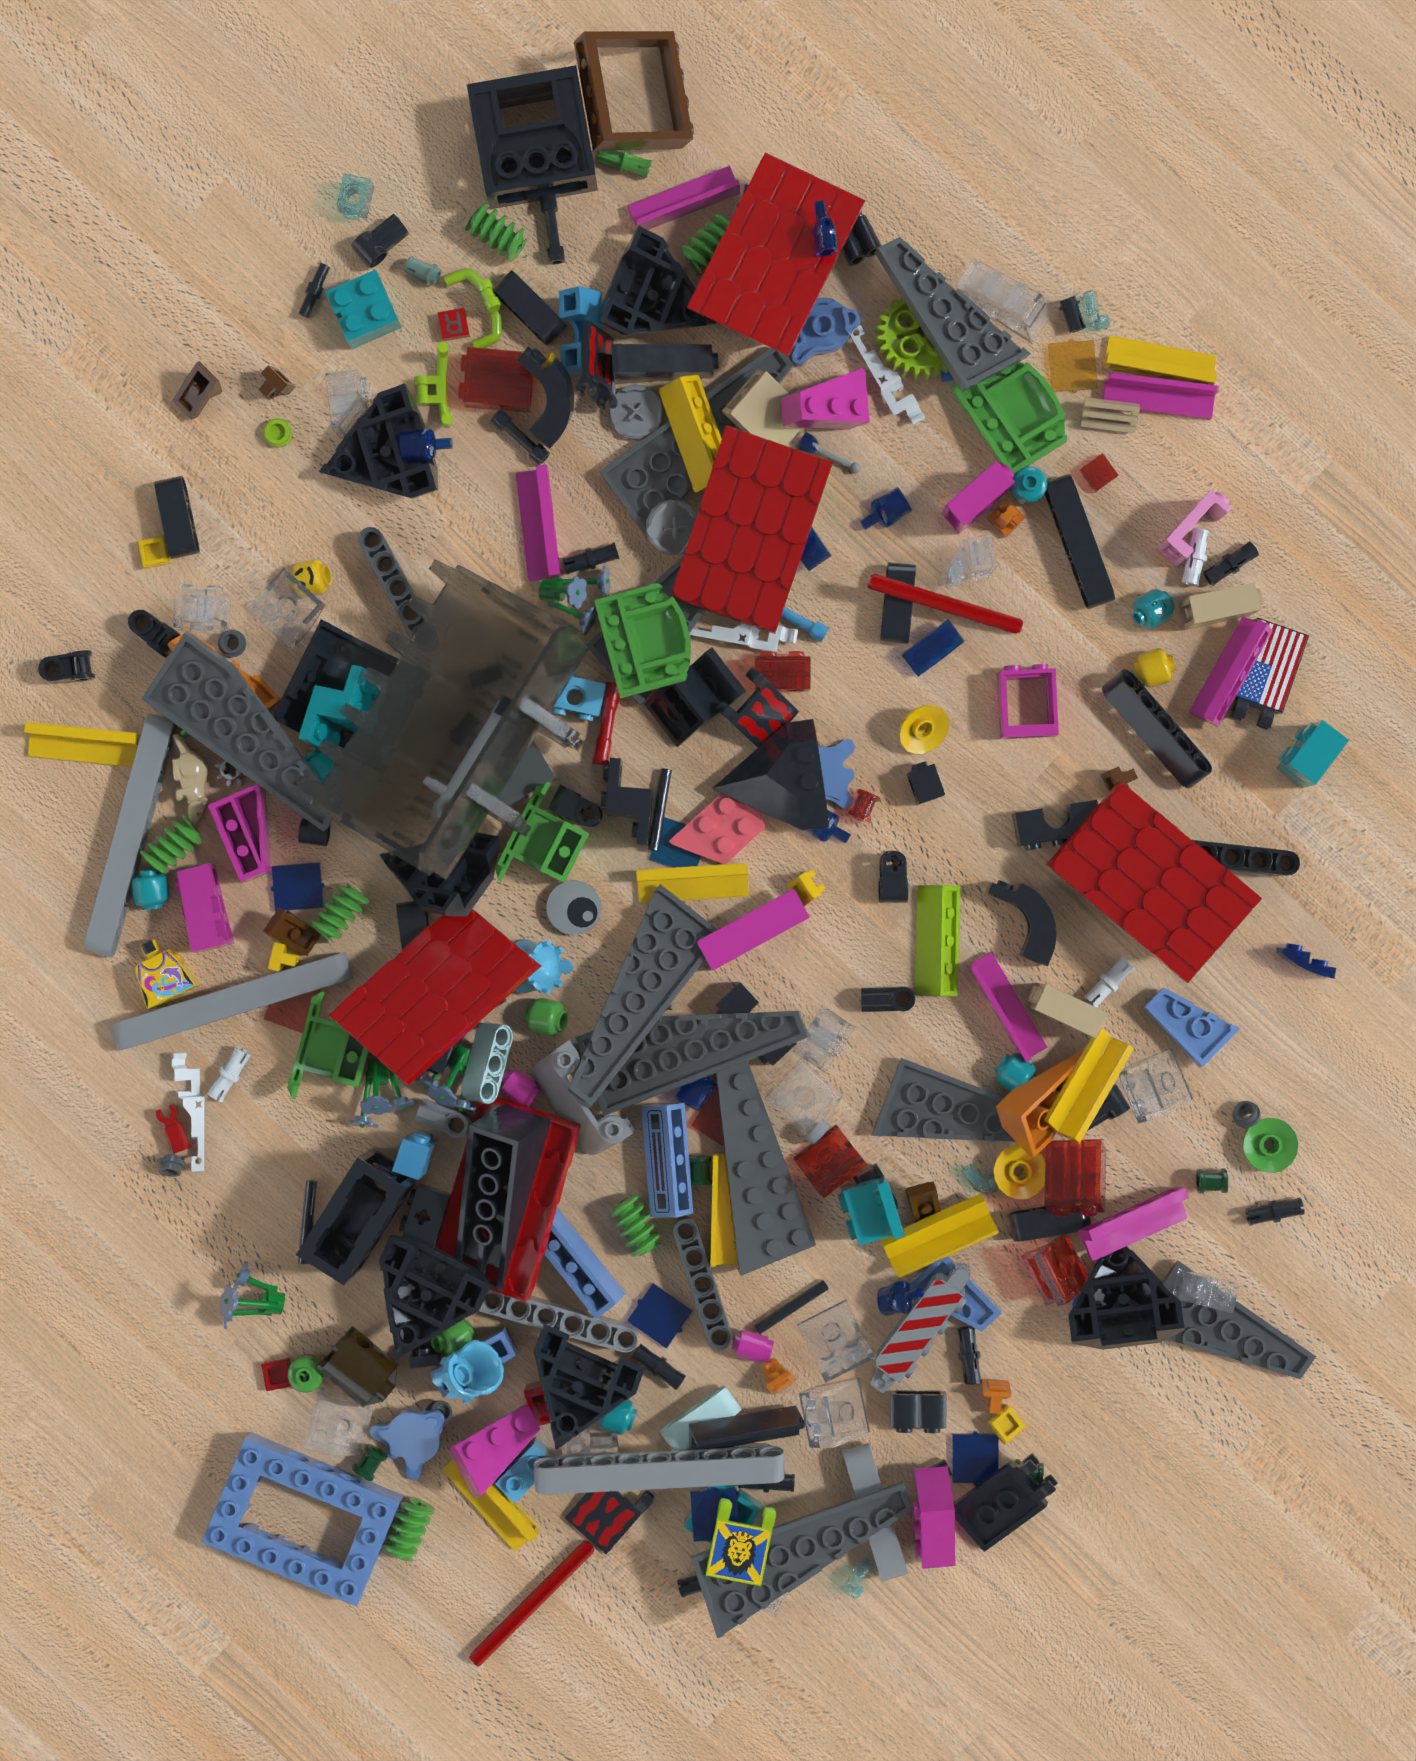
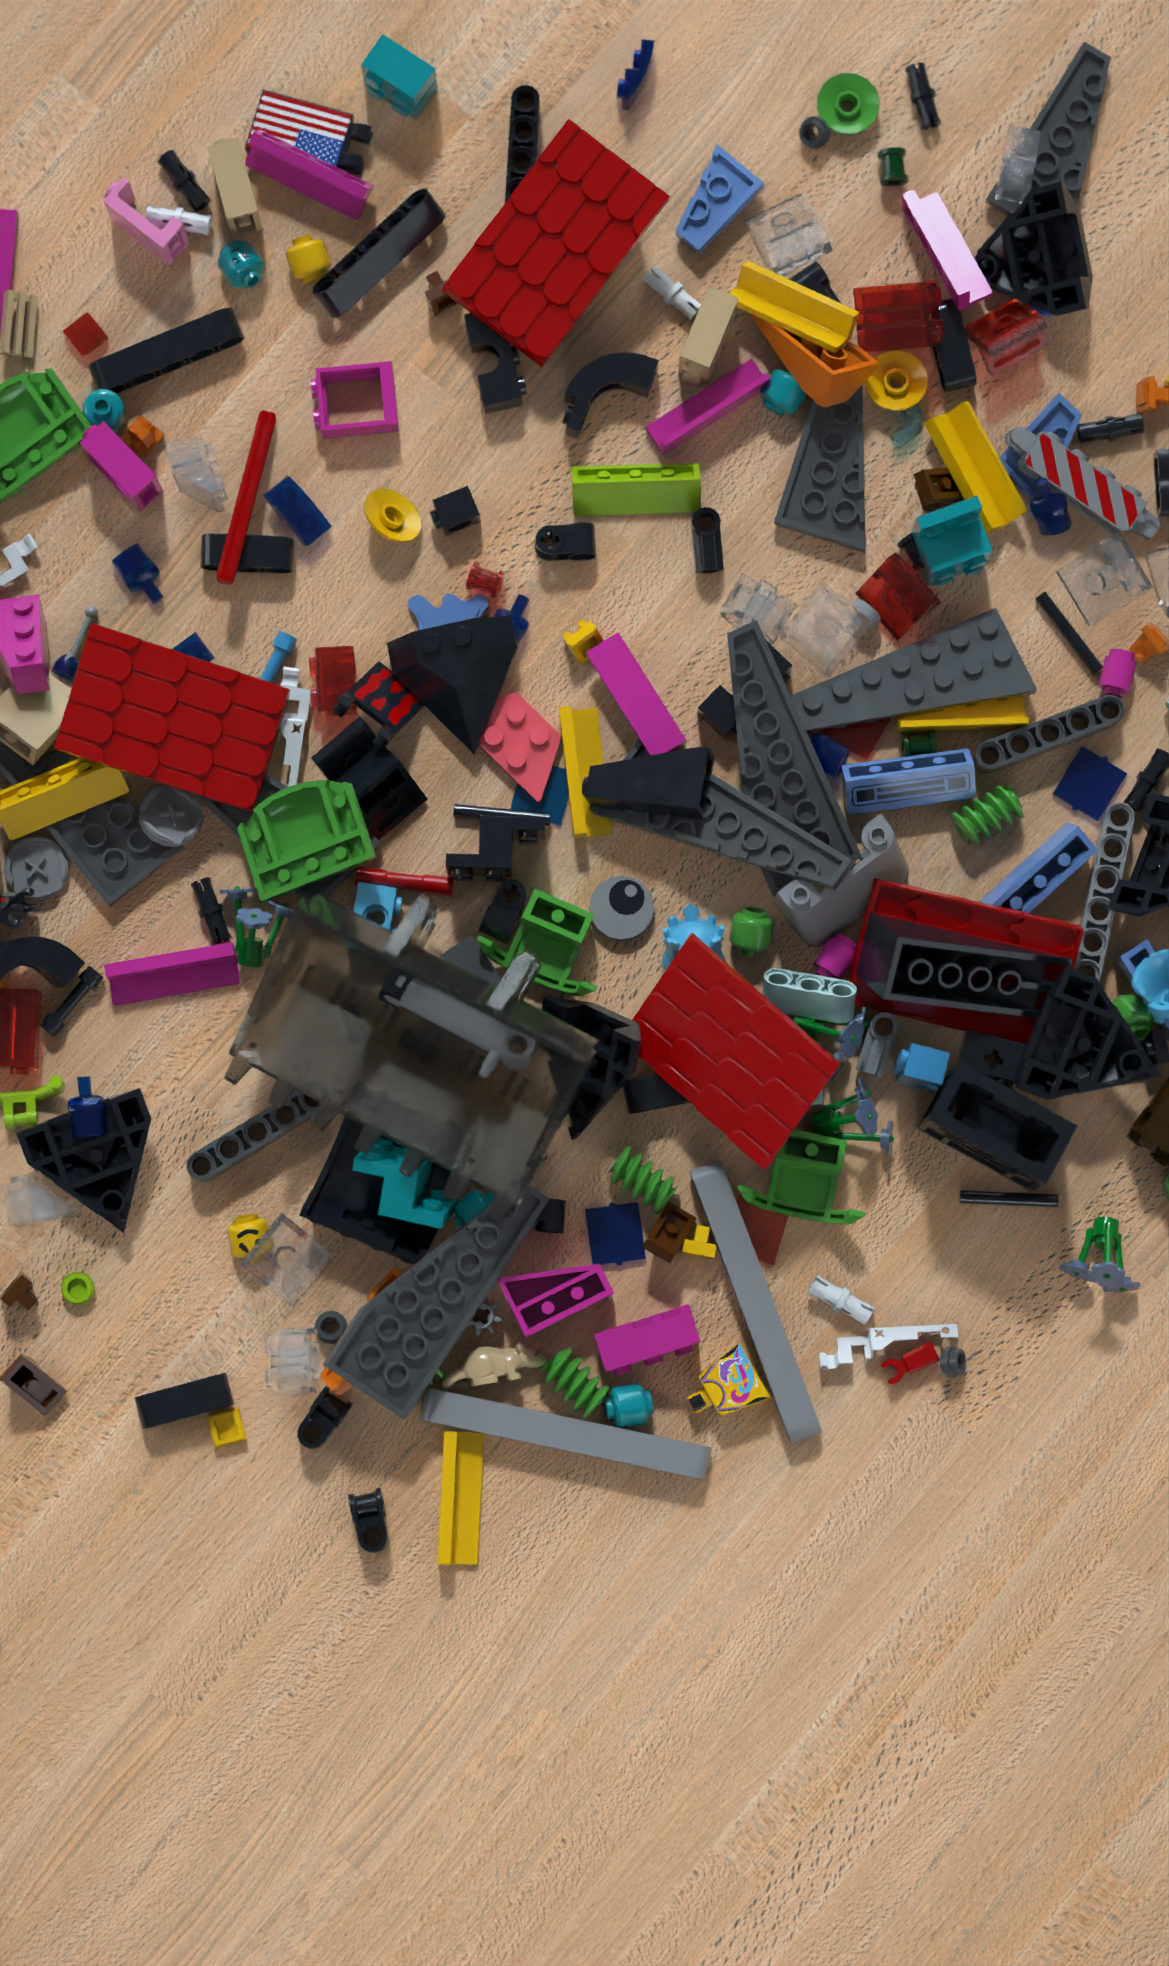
camera: 95 degrees left, 5 degrees down
(674, 941) = (655, 784): none -> black slope

